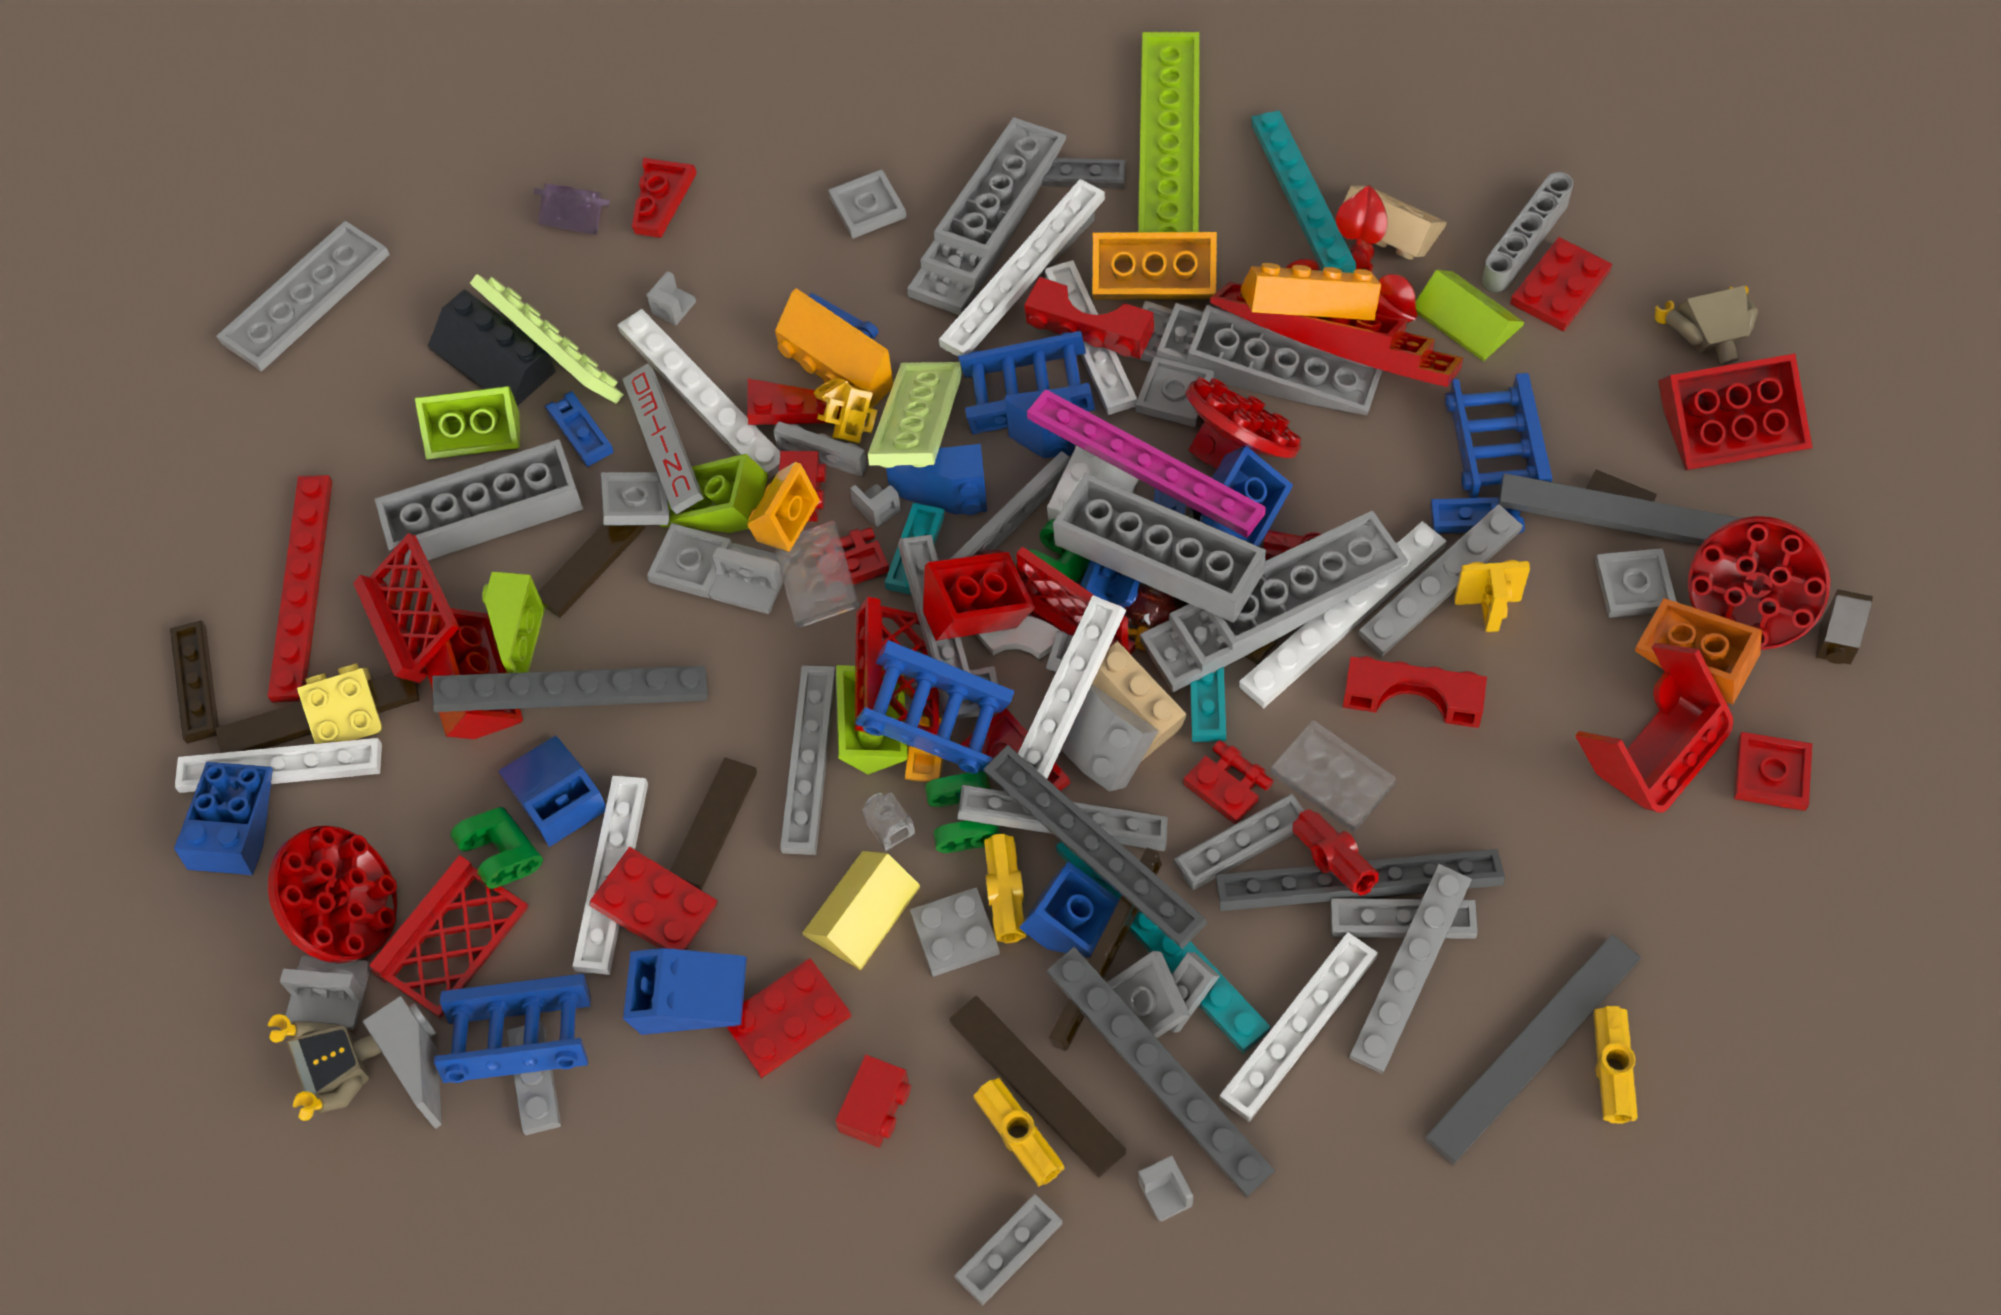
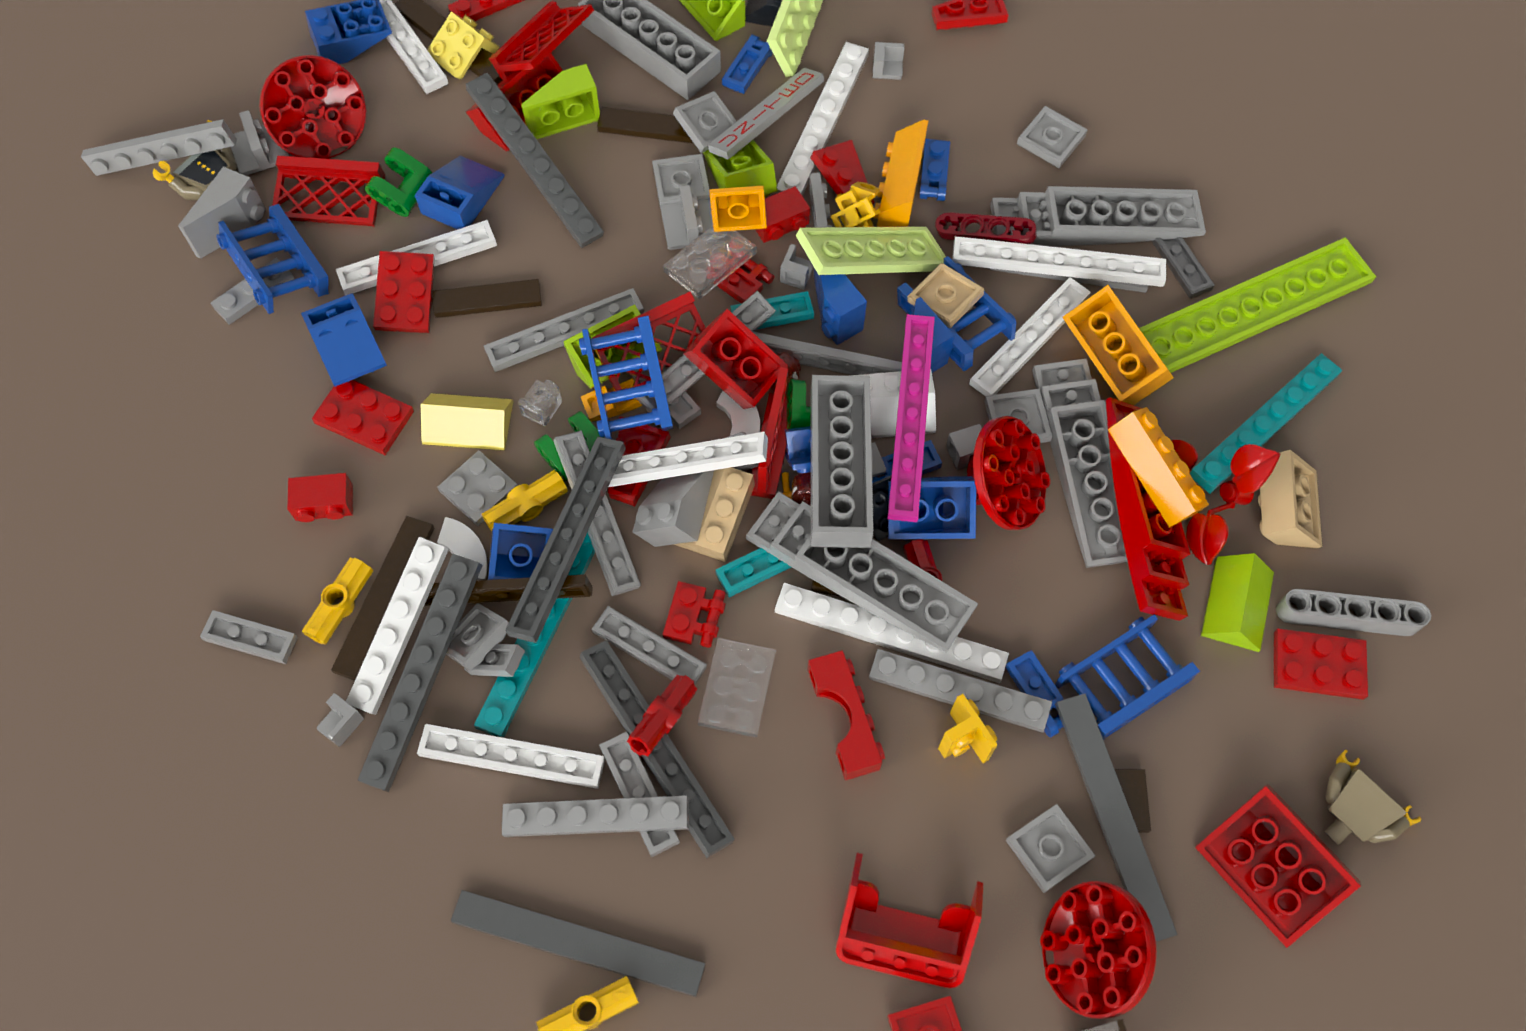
camera: 55 degrees right, 5 degrees up
(261, 1101) = (159, 147): none -> light grey plate
(947, 313) = (986, 224): none -> dark red beam
(1006, 373) = (947, 294): none -> tan tile
(1018, 975) = (463, 542): none -> white tile
(1090, 1073) = (397, 626): none -> white plate
(1122, 330) = (1042, 353): red arch -> none
(1183, 442) = (962, 444): none -> light grey panel
(1724, 644) = (1012, 928): orange slope -> none

